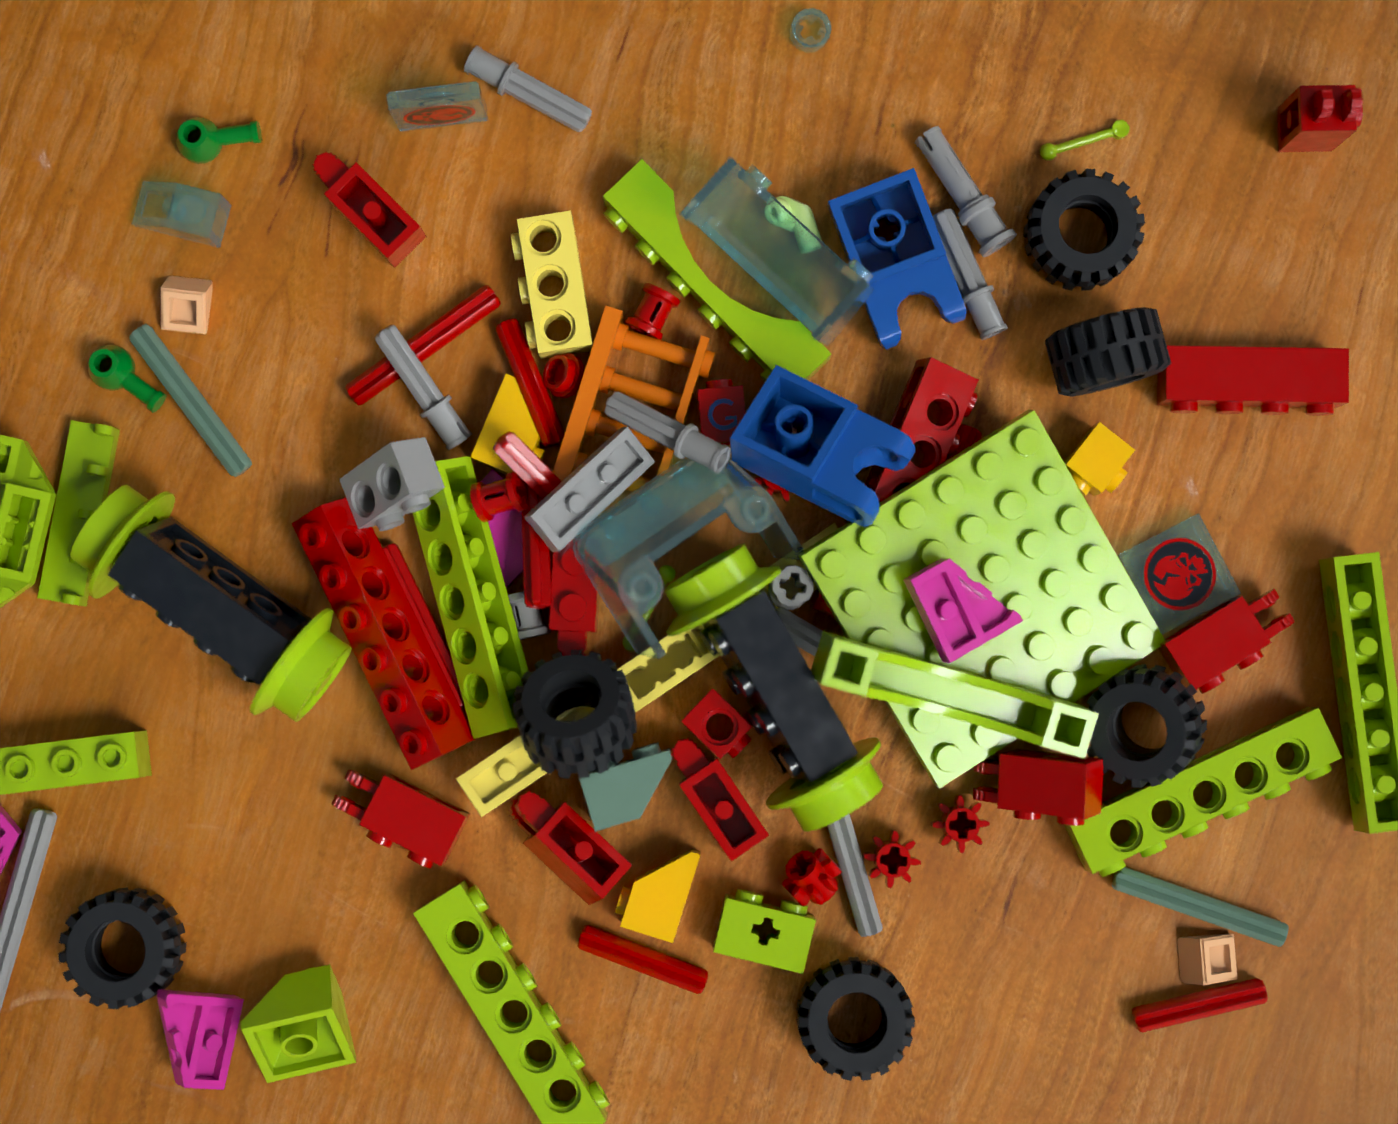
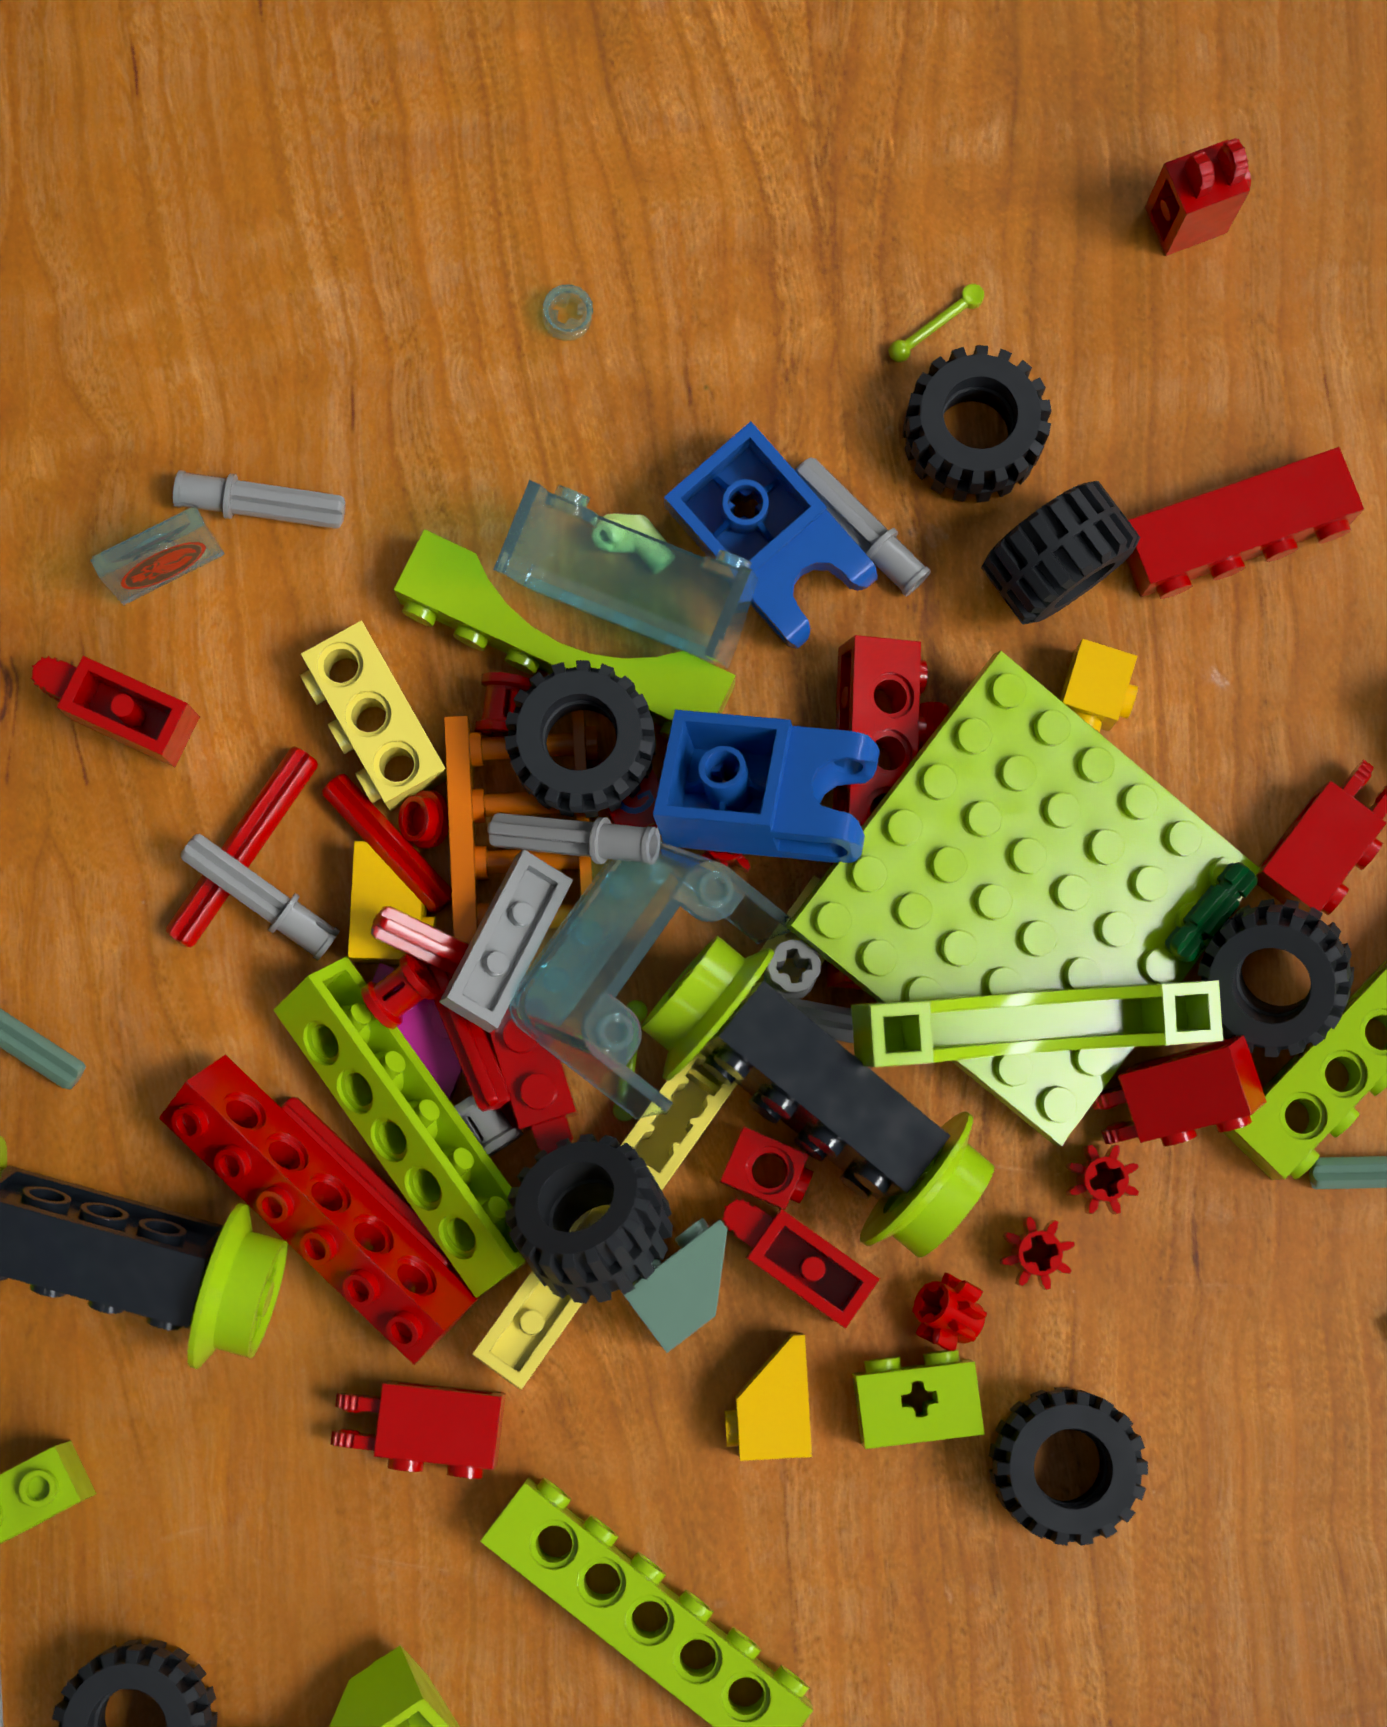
camera: 20 degrees left, 5 degrees down
(392, 484) = (264, 1024): light grey brick -> none
(569, 846) = (641, 1386): red hinge -> none
(643, 959) = (782, 1492): red axle -> none
(691, 322) = (564, 693): none -> black tyre
(855, 877) = (1001, 1292): light grey axle -> none
(957, 609) = (1001, 919): dark pink wing -> none
(975, 209) = (840, 447): light grey pin -> none
(1115, 659) = (1211, 912): none -> dark green axle
(1179, 573) = (1245, 783): tile -> none

